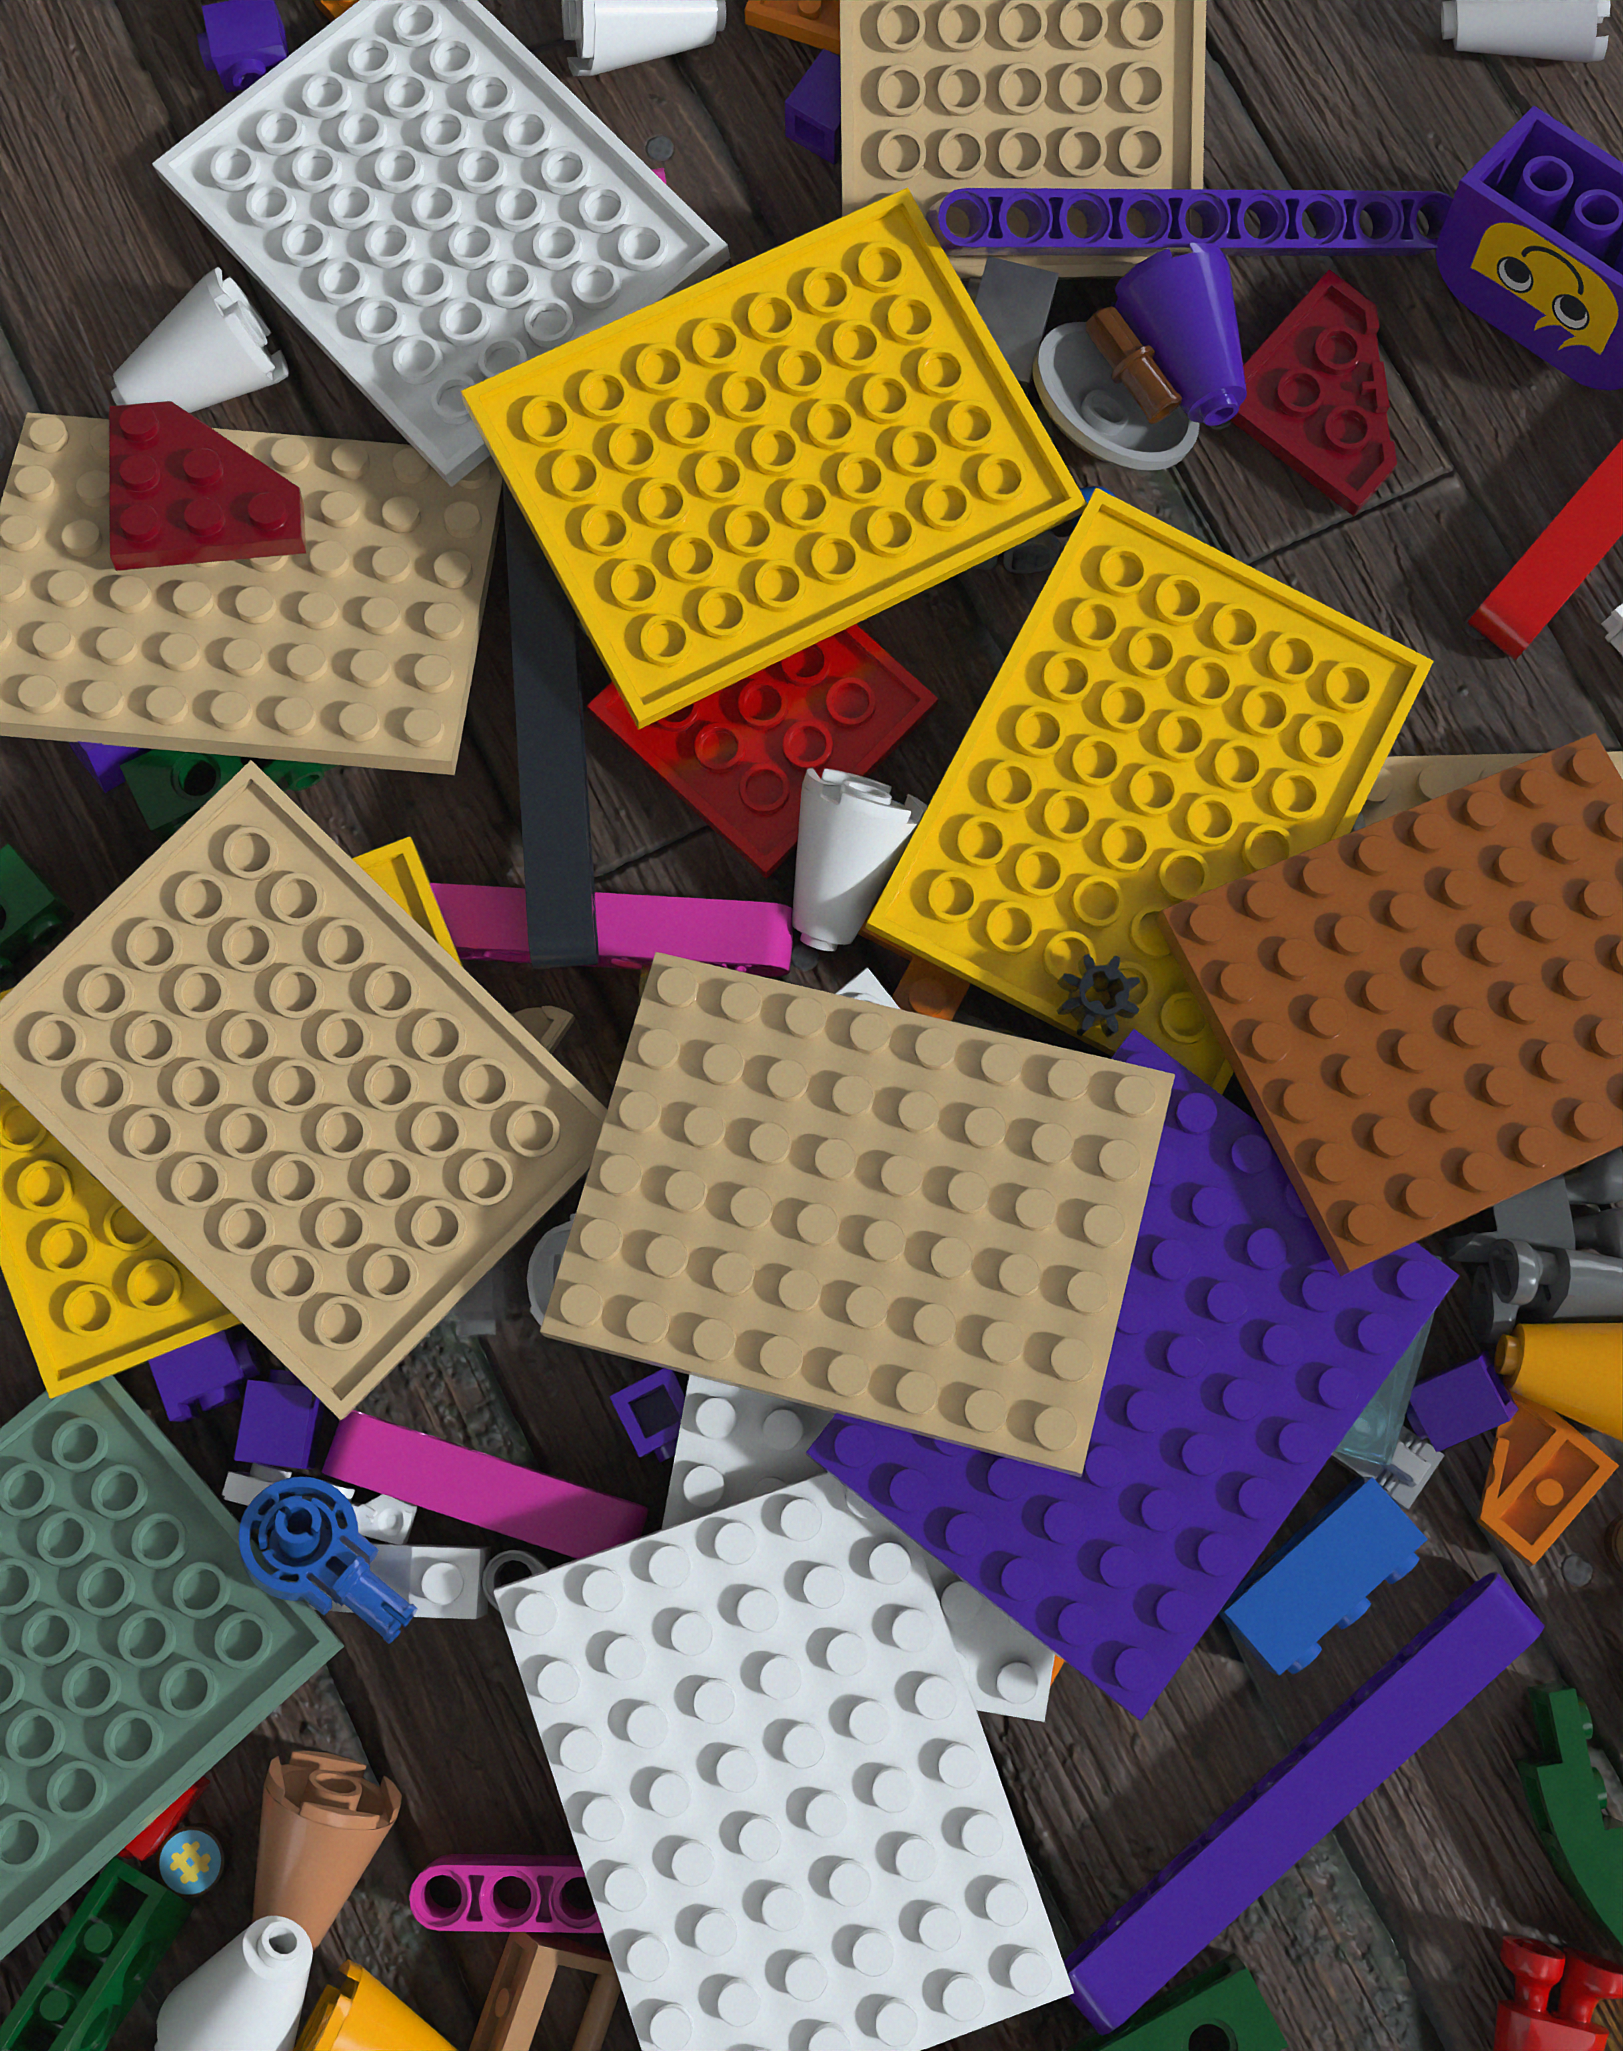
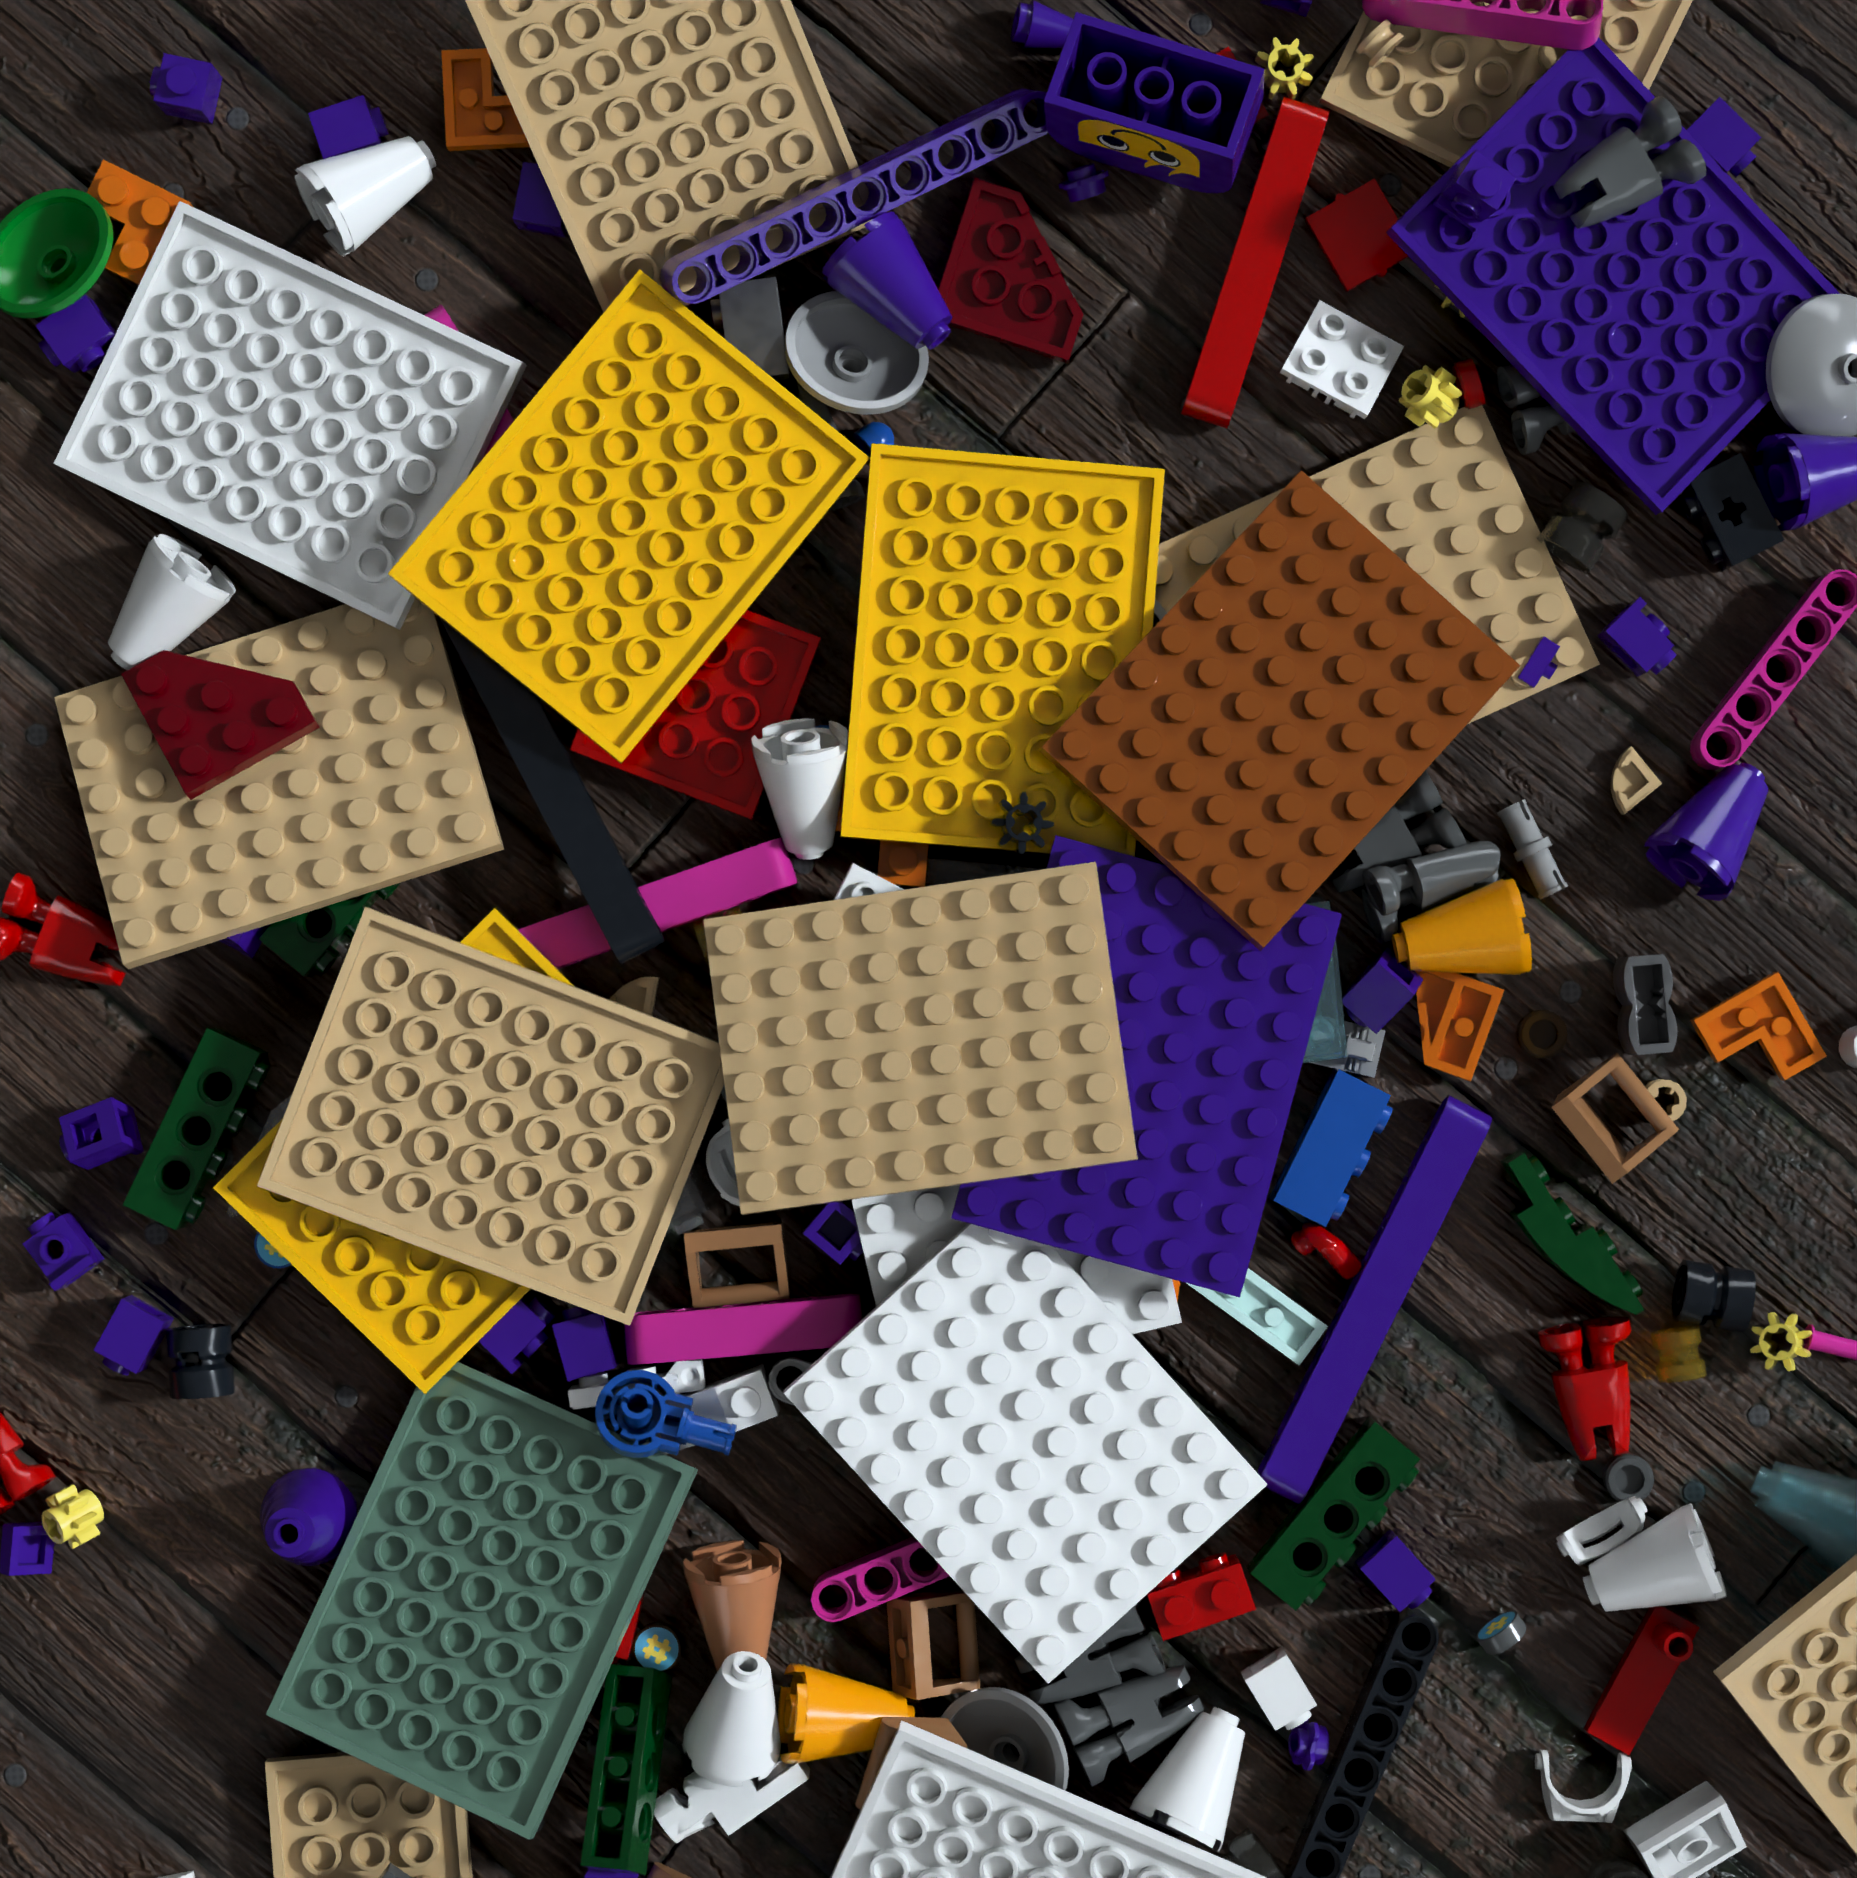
camera: 20 degrees left, 10 degrees up
(520, 1367) = (731, 1238): none -> medium nougat tile
(1132, 364) = (858, 327): reddish brown axle -> none
(1157, 1762) = (1270, 1316): none -> light aqua plate
(1272, 1705) = (1329, 1246): none -> red arm
(1453, 325) = (1084, 182): none -> dark purple plate
(1462, 140) = (1039, 26): none -> dark purple cone

